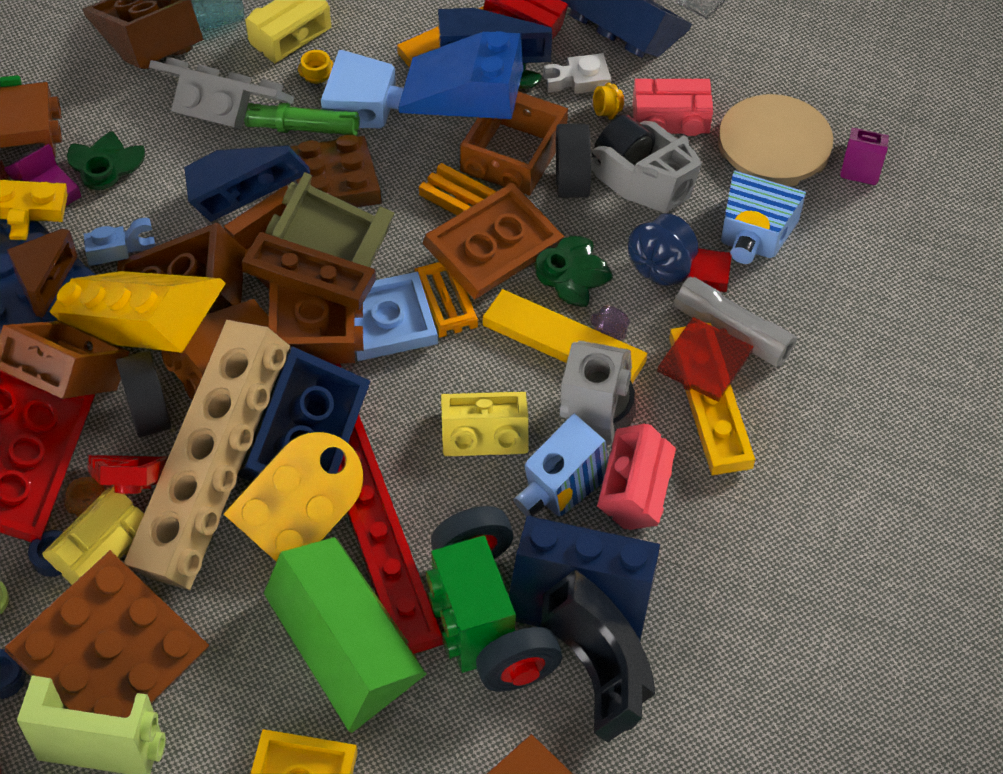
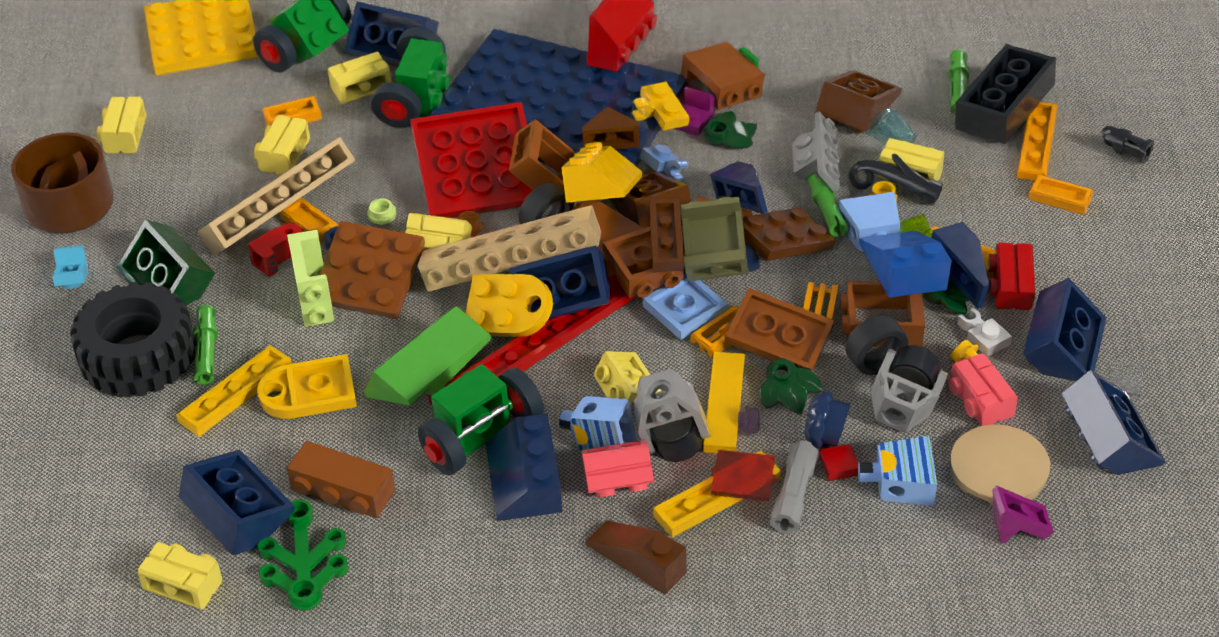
camera: 70 degrees right, 10 degrees down
(126, 472) = (478, 221): red wing -> none
(311, 33) = (901, 175): none -> black plant
(399, 56) = (917, 223): none -> clear neon green tile
(607, 648) = (484, 480): black arch -> none
(770, 506) = (642, 553): none -> reddish brown slope
(772, 33) = (1111, 425): none -> slope

